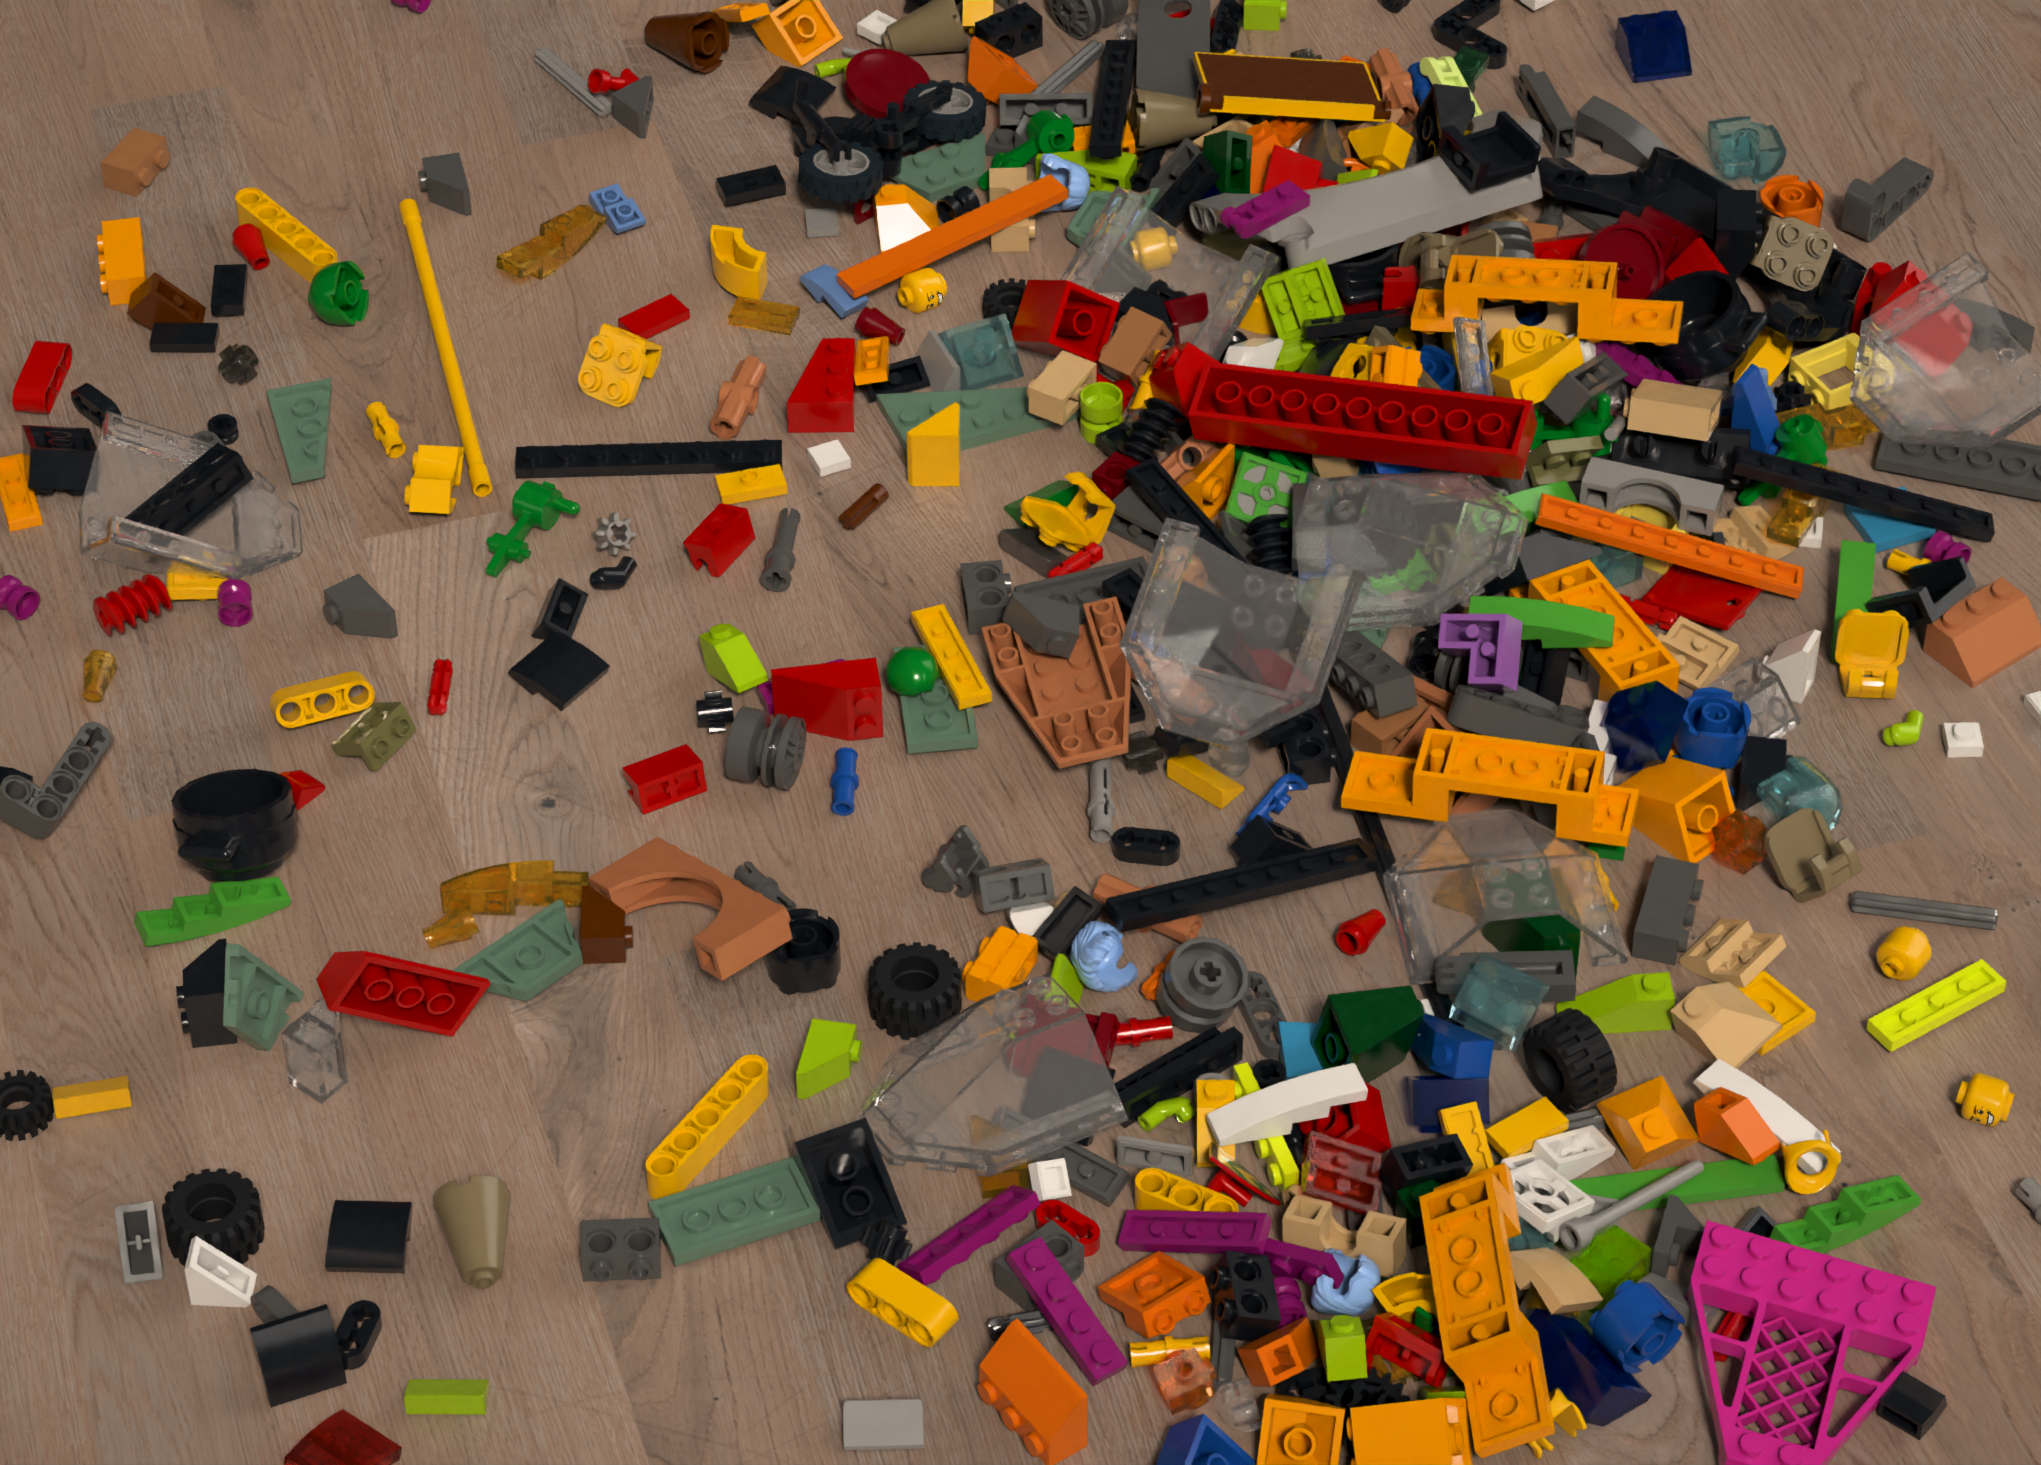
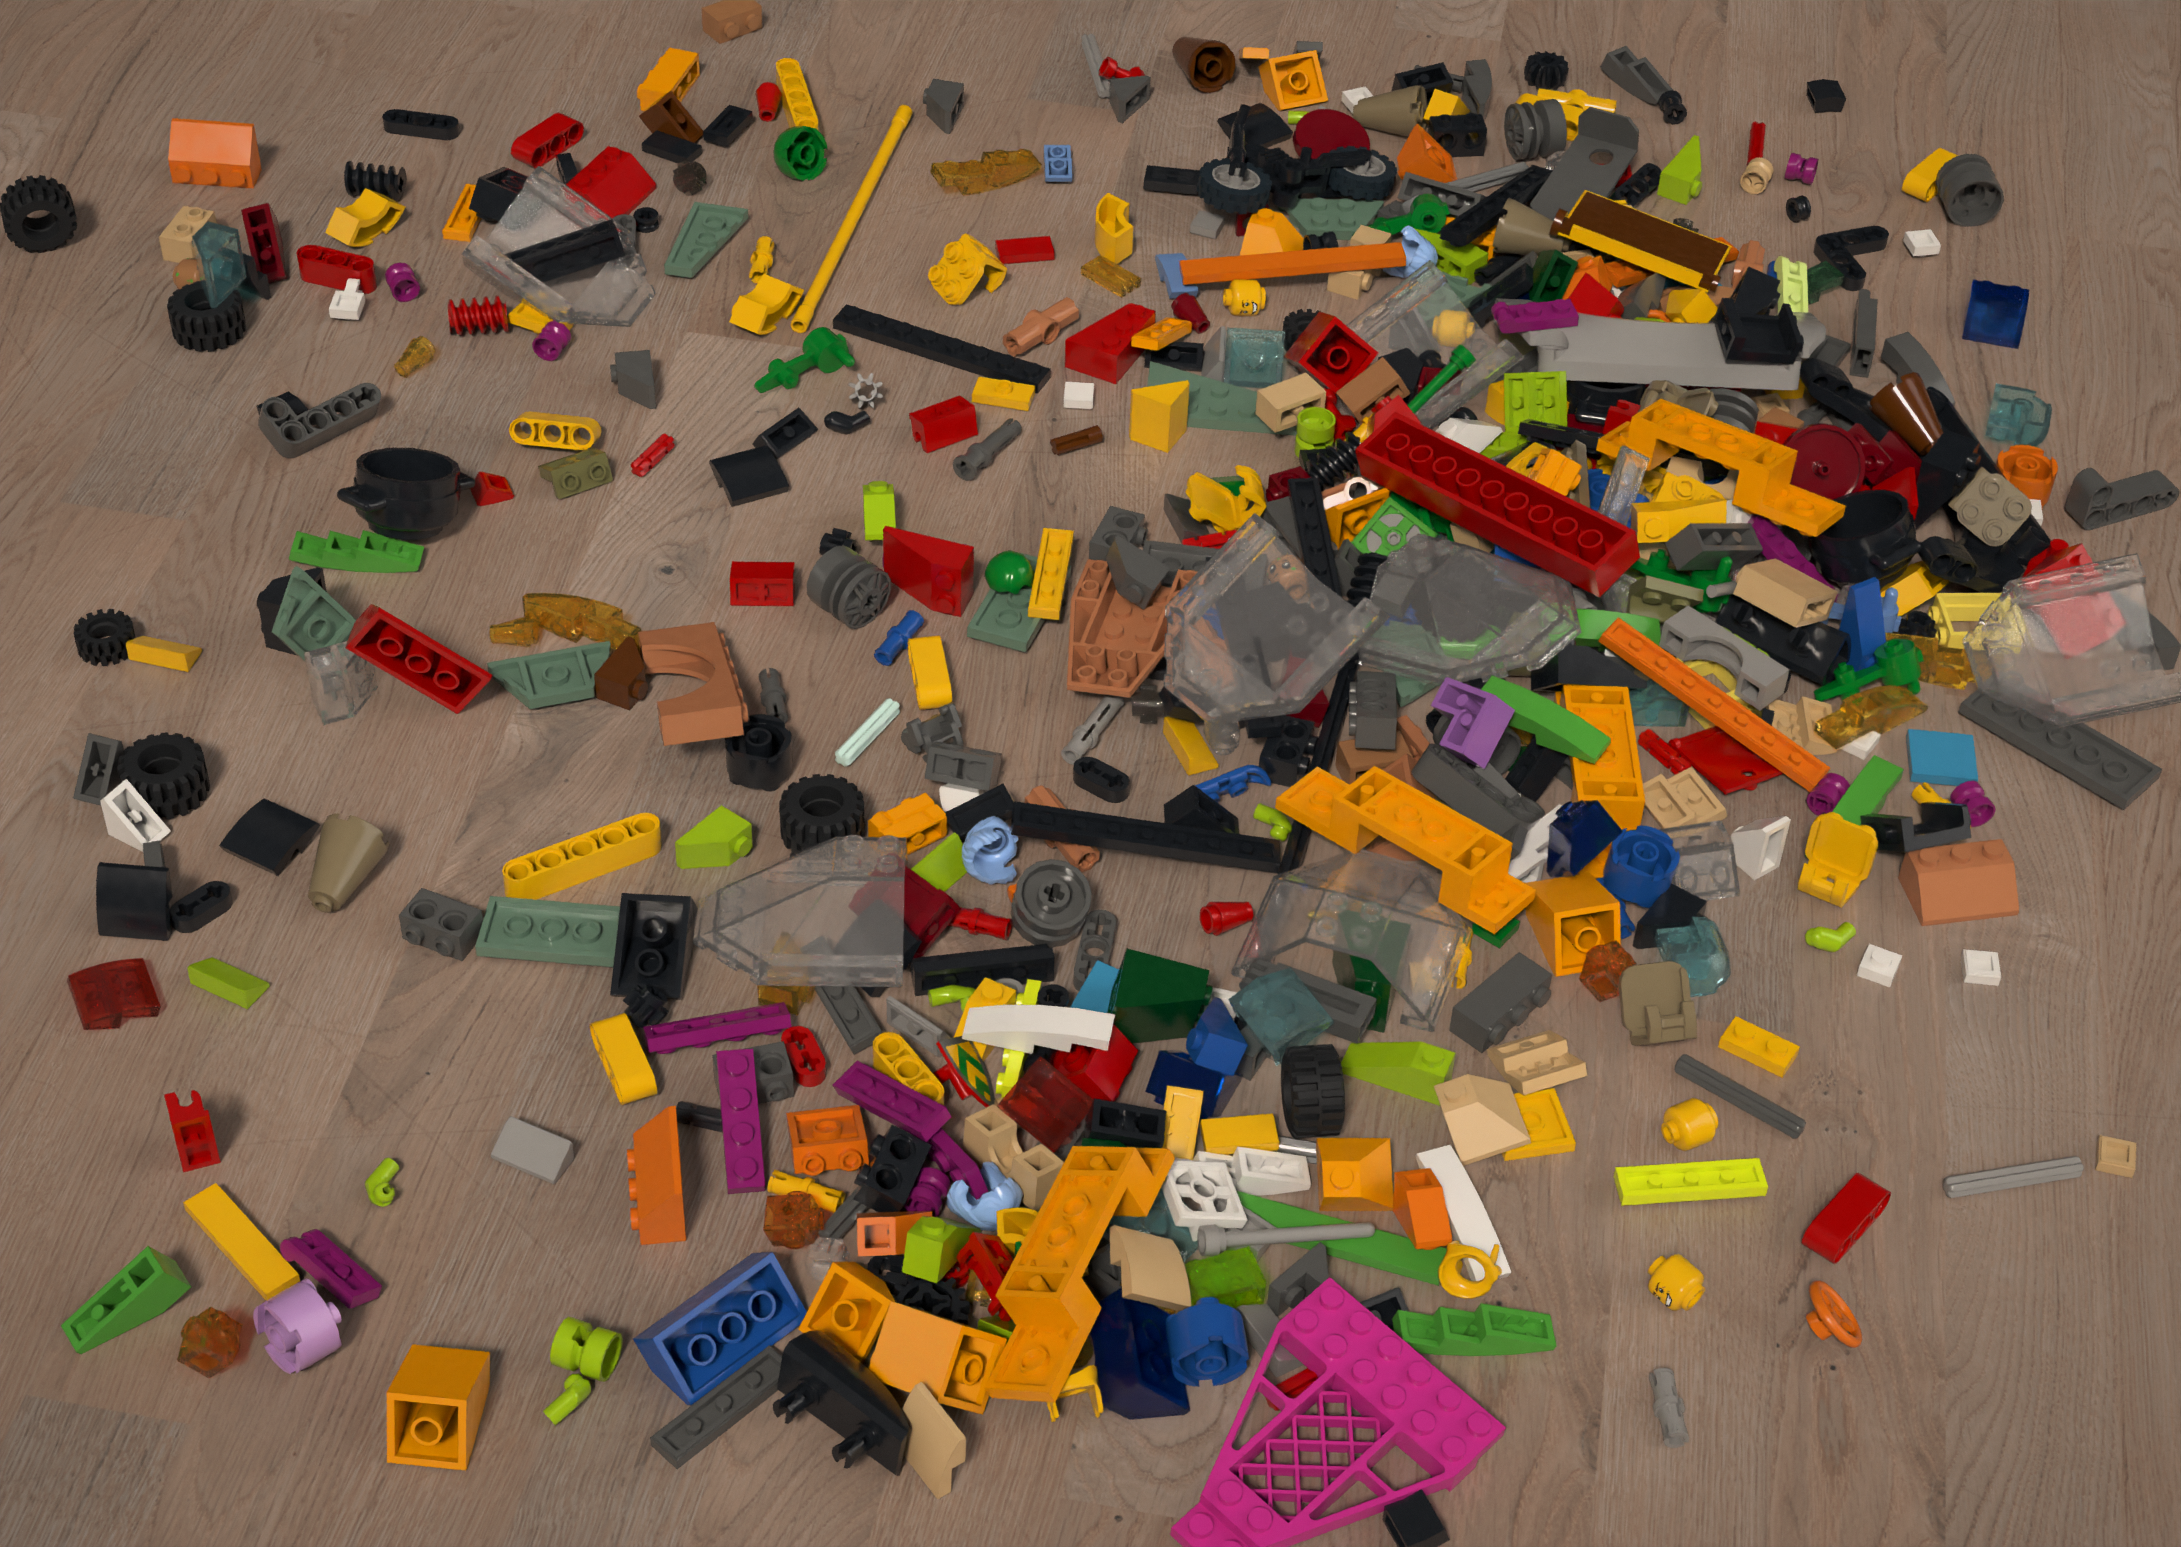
camera: 25 degrees right, 0 degrees up
(161, 396) = (613, 182): none -> red slope
(885, 889) = (867, 732): none -> light aqua axle
(903, 804) = (929, 672): none -> yellow beam
(1050, 1179) = (812, 1010): white tile -> none
(1213, 281) = (1460, 359): none -> green piece
(1337, 818) = (1275, 818): none -> lime arm
(1656, 183) = (1908, 412): none -> reddish brown cone
(1818, 595) = (1827, 793): none -> magenta wheel
(1862, 493) = (1922, 725): black tile -> none
(1910, 858) = (1759, 1046): none -> yellow plate

